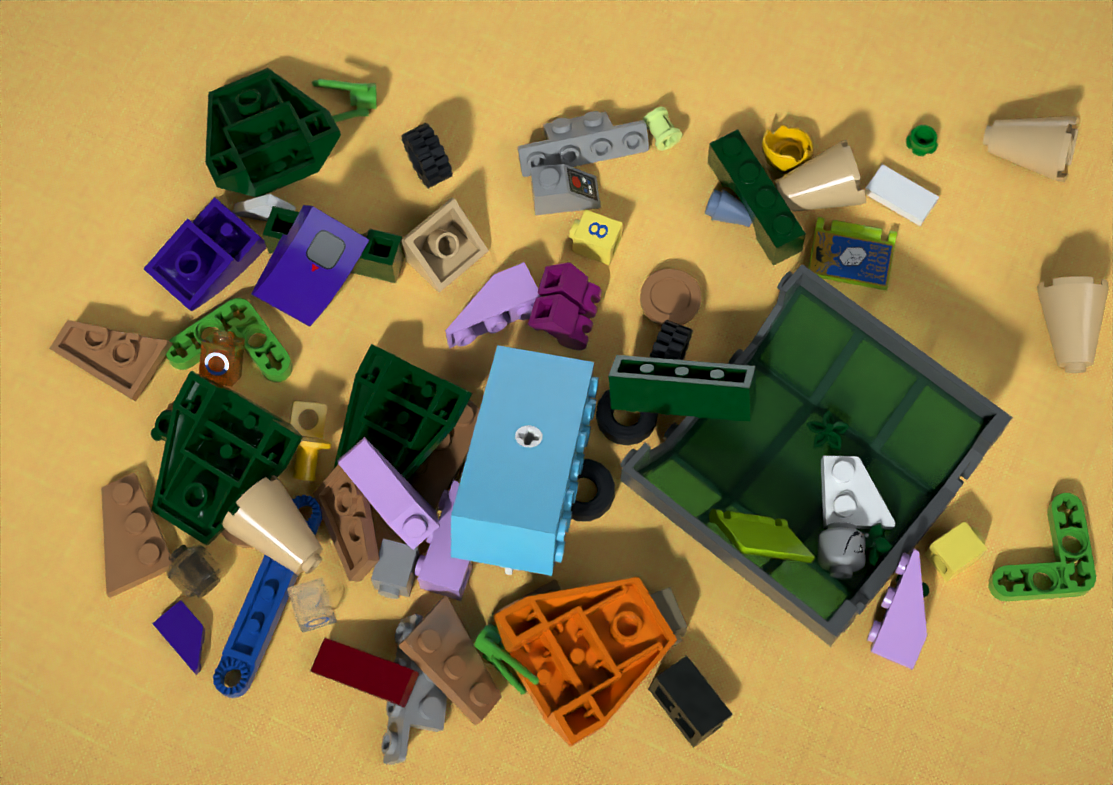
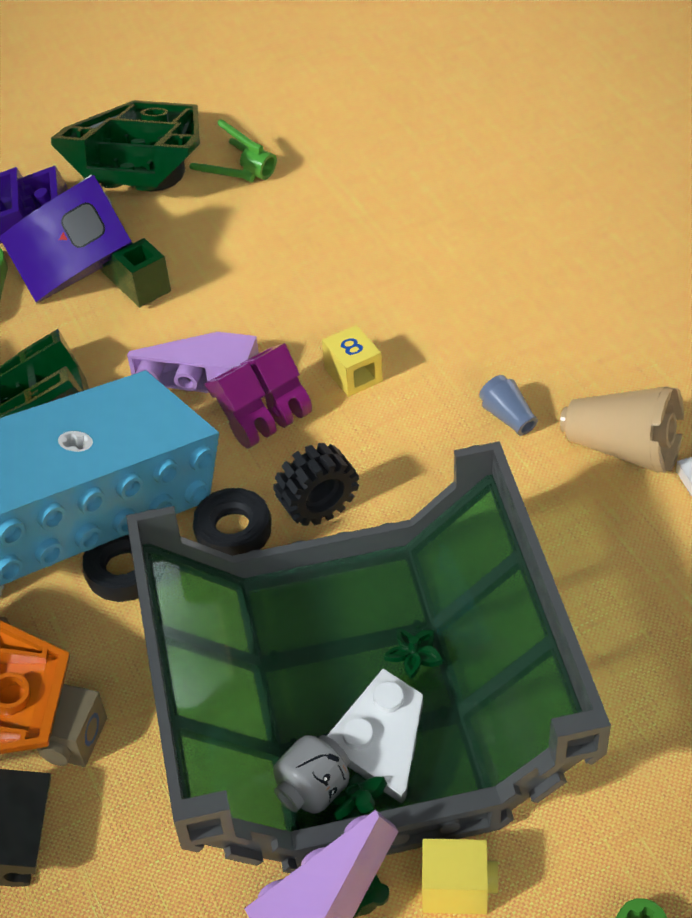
camera: 40 degrees right, 20 degrees down
(427, 155) = (258, 218): black tyre -> none
(443, 246) = (204, 292): tan slope -> none
(563, 189) = (355, 299): light grey slope -> none
(583, 142) = (414, 284): light grey bracket -> none
(662, 128) = (507, 311): yellowish green bush -> none
(670, 296) = (377, 448): medium nougat piece -> none
(683, 387) = (288, 509): dark green brick -> none
(761, 535) = (224, 690): lime piece -> none
(772, 219) = (542, 408): dark green arch -> none
(786, 148) = (610, 378): yellow hair -> none
(852, 254) = (610, 516): piece -> none

